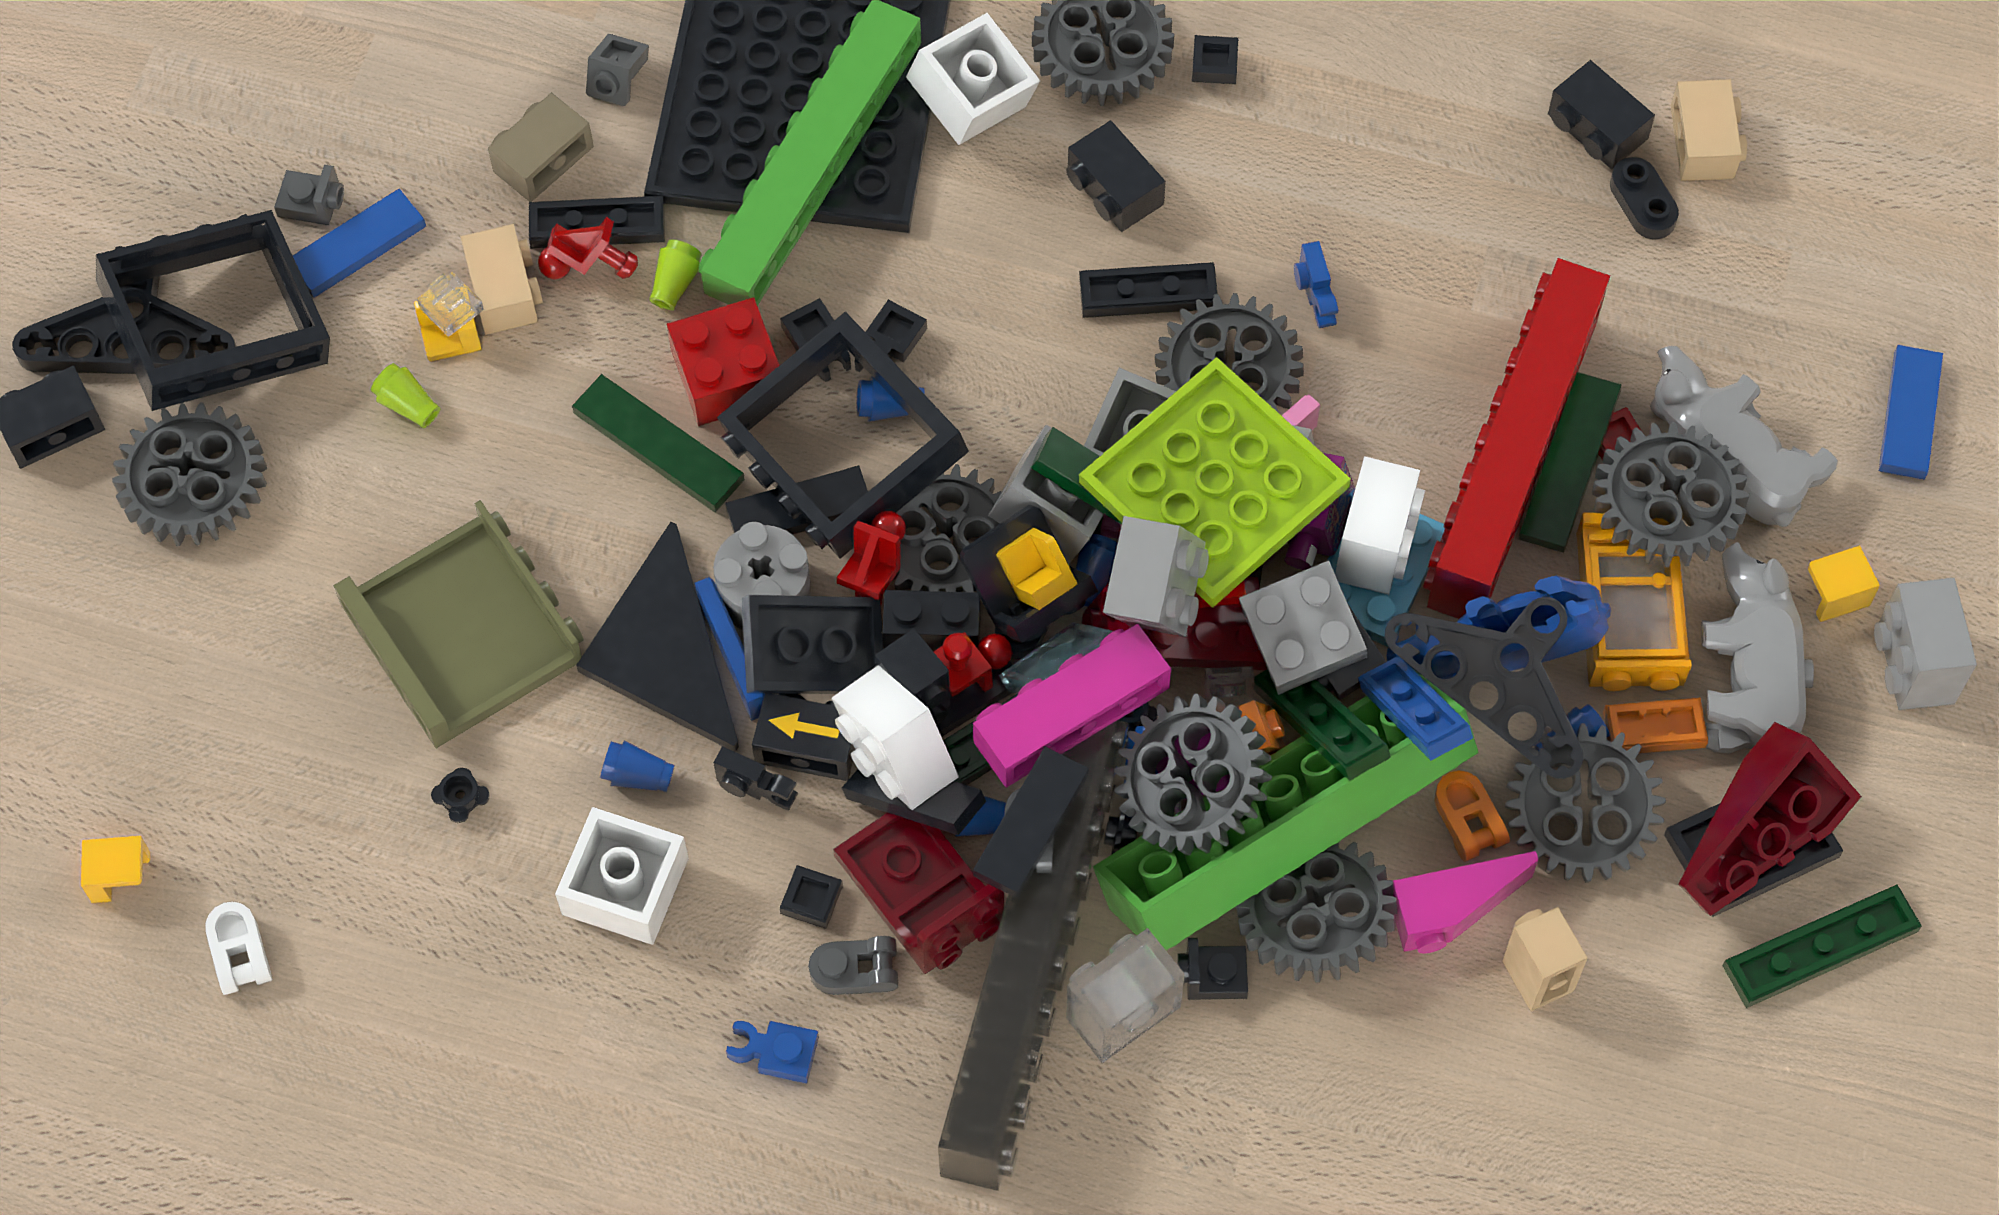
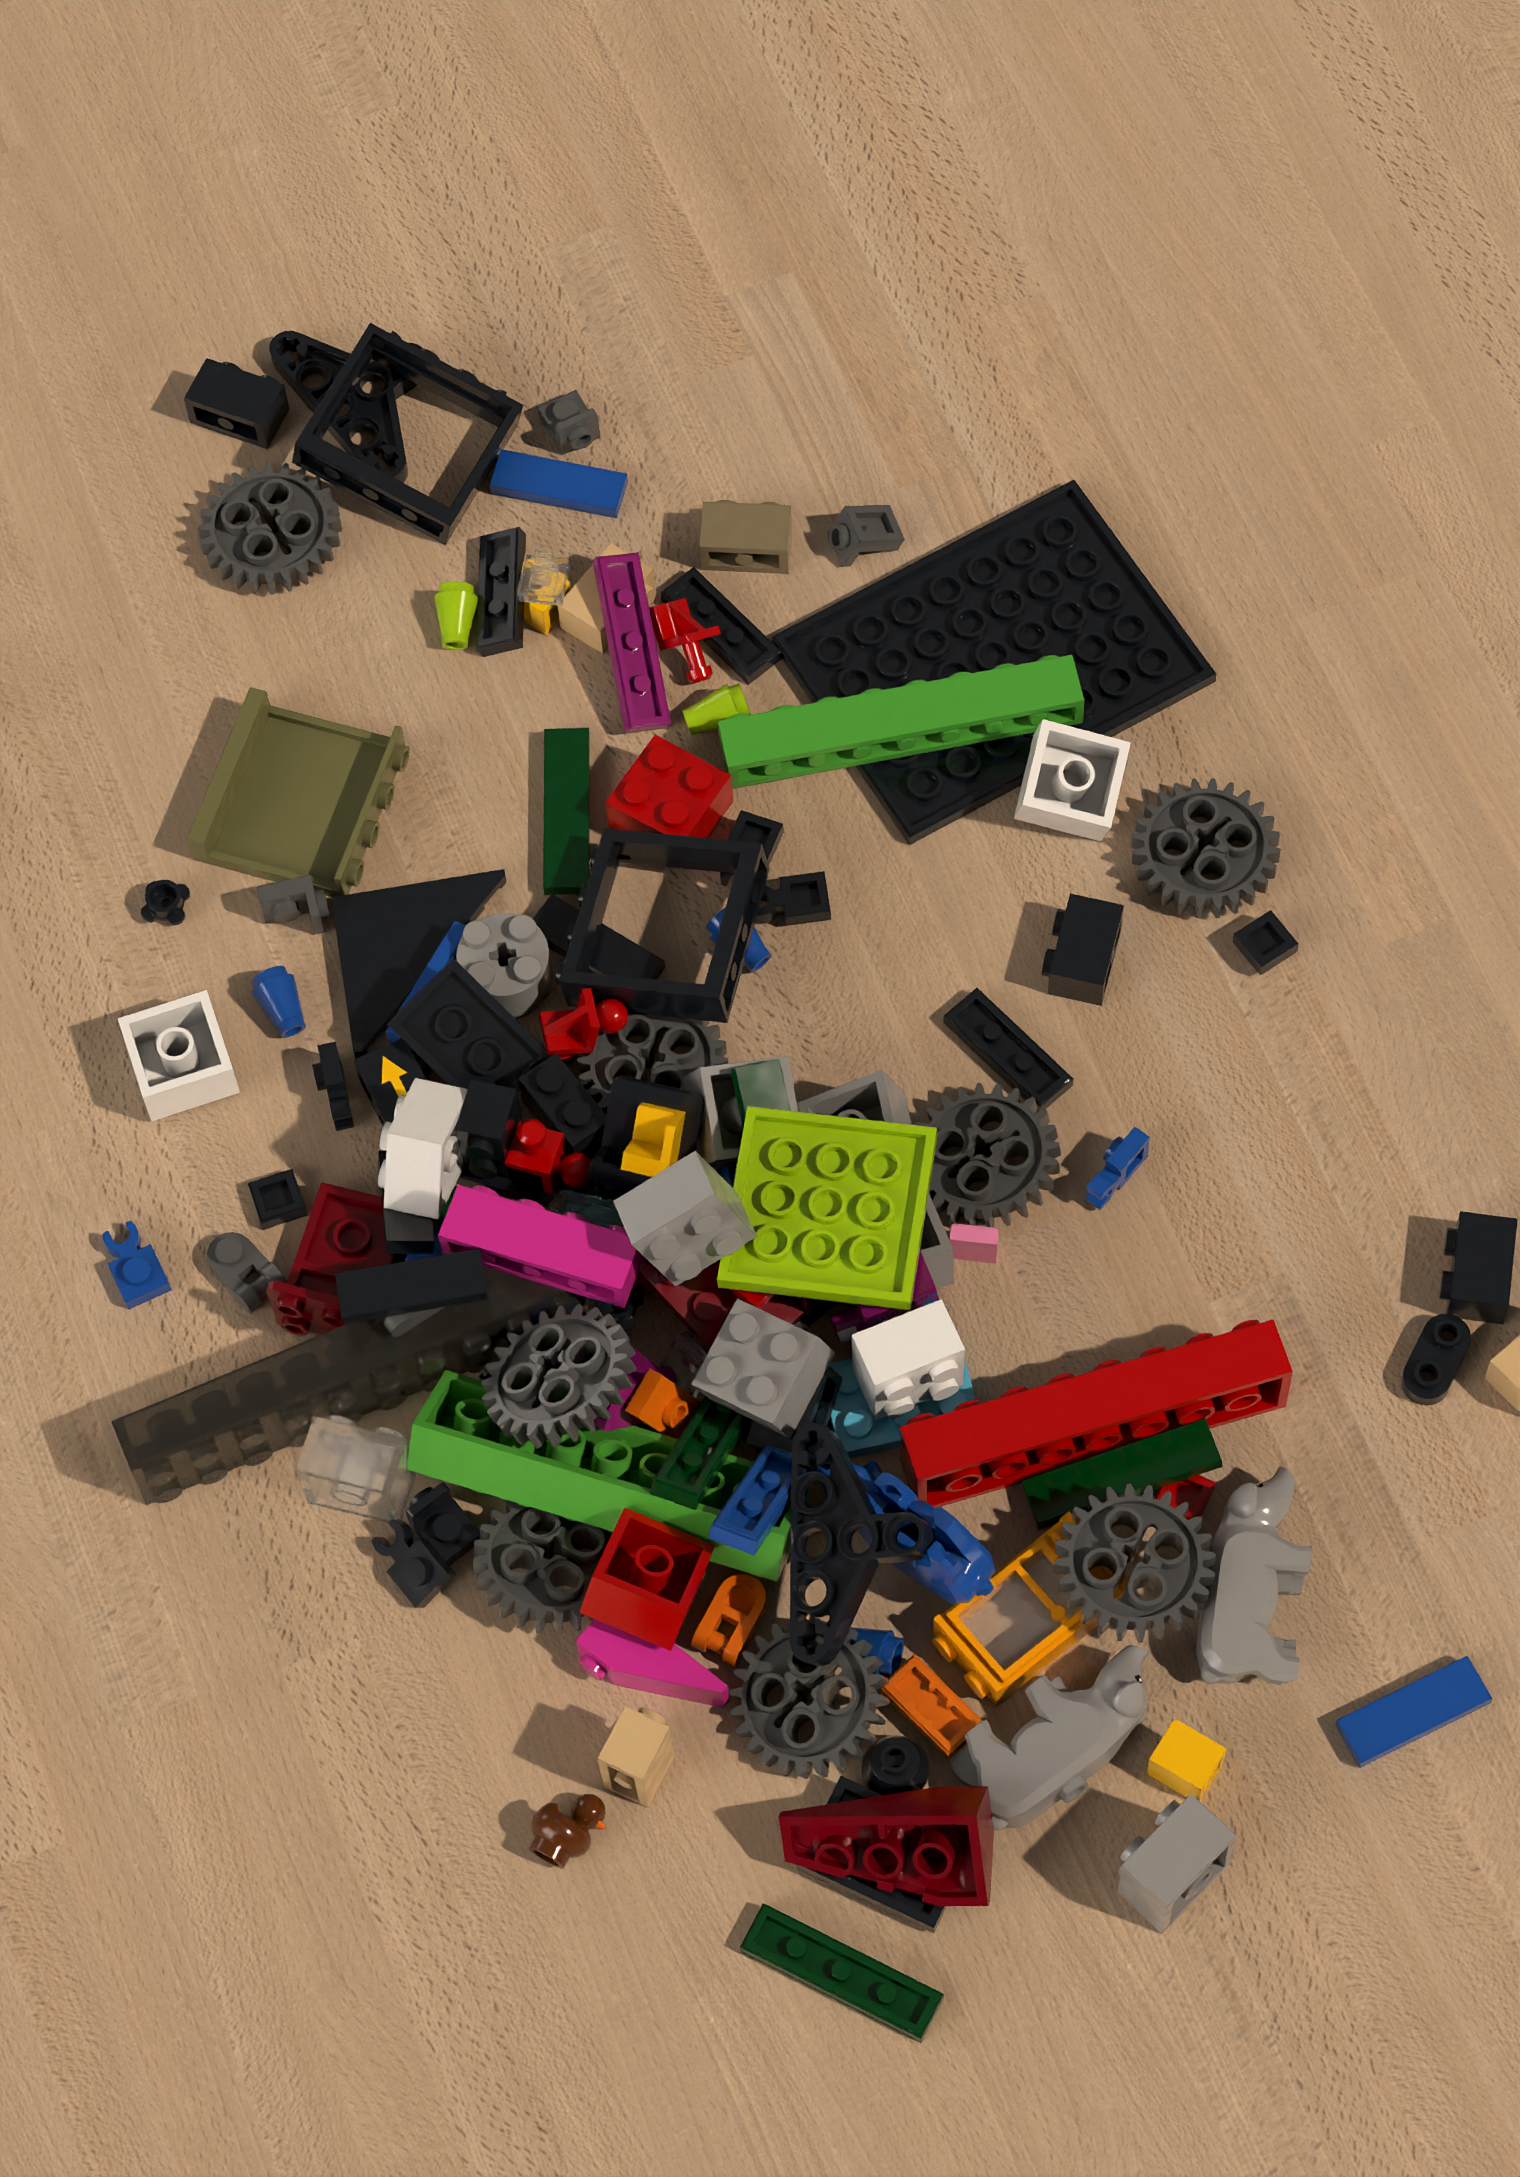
camera: 55 degrees right, 0 degrees up
(417, 348) = (499, 610): none -> black tile
(551, 695) = (290, 899): none -> dark grey bracket
(562, 285) = (631, 642): none -> magenta tile
(1238, 1015) = (417, 1566): none -> black plate
(1410, 839) = (647, 1579): none -> red brick
(1558, 1064) = (562, 1837): none -> reddish brown animal
(1686, 786) = (895, 1766): none -> black cone

